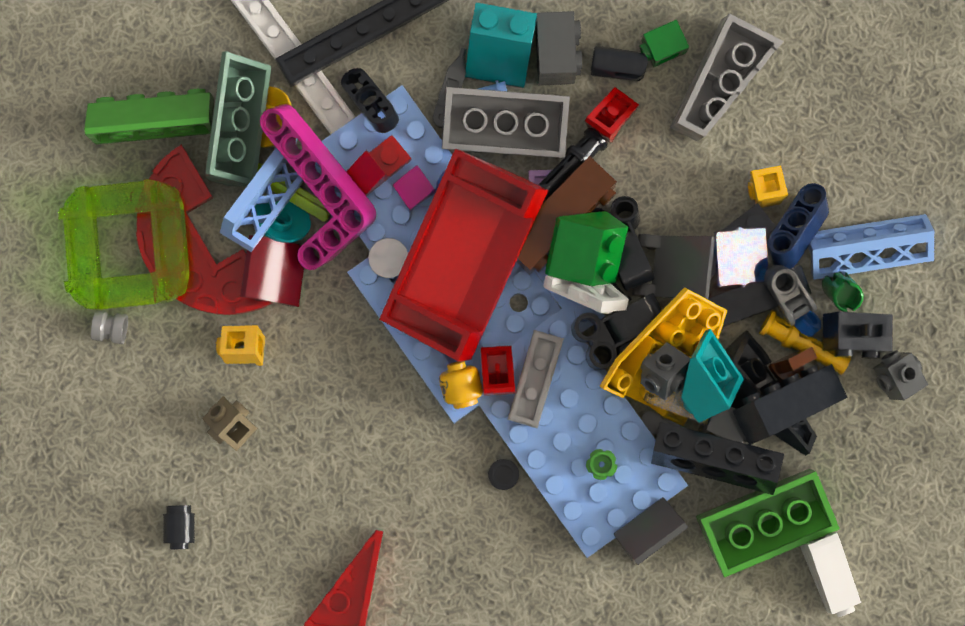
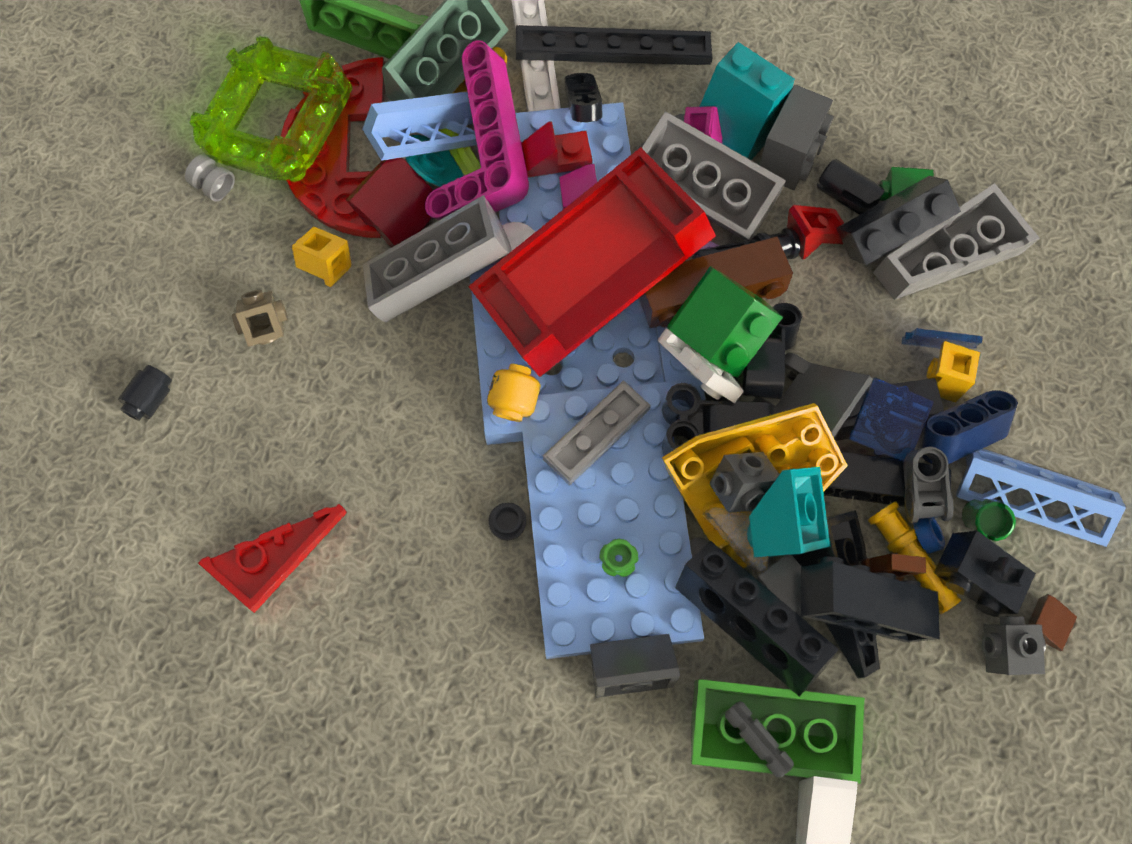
camera: 30 degrees right, 15 degrees down
(338, 308) = (434, 259): none -> light grey brick
(476, 74) = (705, 120): none -> dark pink slope
(497, 370) = (558, 403): red slope -> none
(671, 84) = (898, 219): none -> black brick
(747, 165) = (935, 338): none -> clear blue piece
(760, 538) = (759, 739): none -> dark grey axle
(919, 339) = (1055, 621): none -> reddish brown slope

